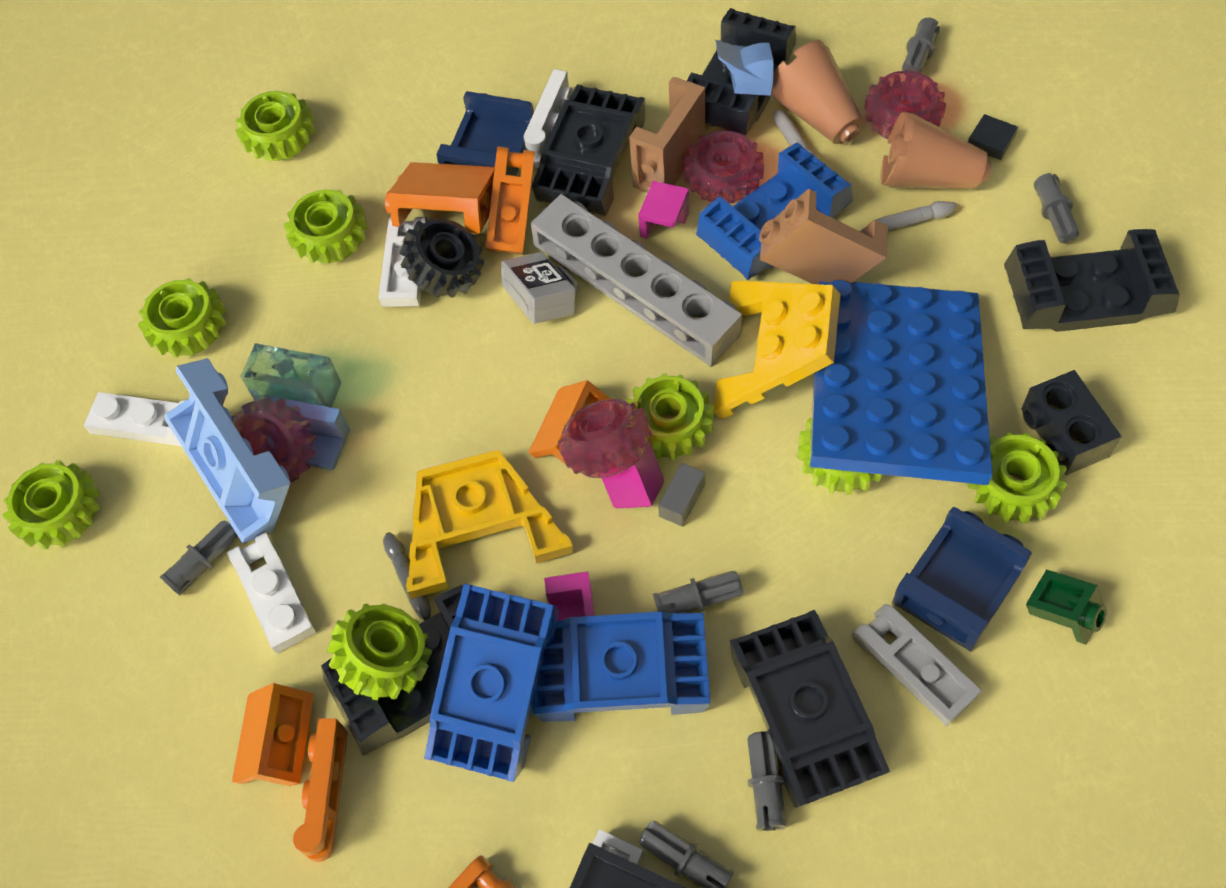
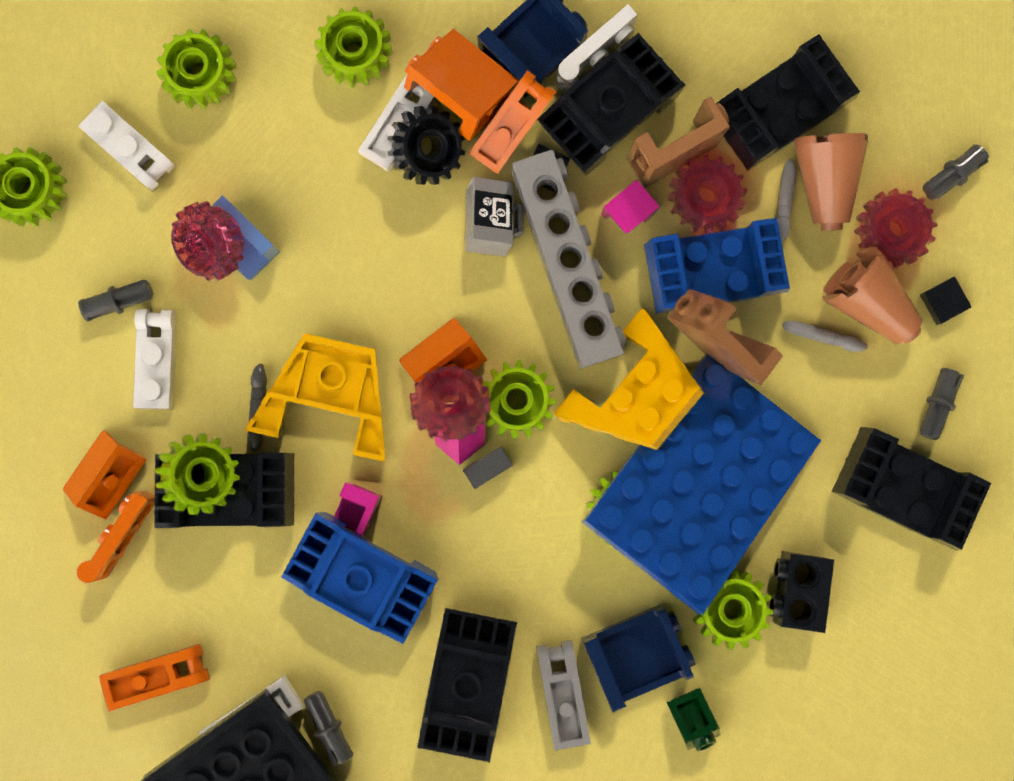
camera: 20 degrees right, 25 degrees up
(243, 484) = (160, 185): light blue piece -> none
(290, 375) = (247, 185): clear light blue brick -> none
(489, 682) = (264, 539): blue plate -> none
(699, 593) = (448, 553): dark grey axle -> none
(749, 67) = (787, 114): medium blue slope -> none
(766, 783) = (409, 712): dark grey axle -> none

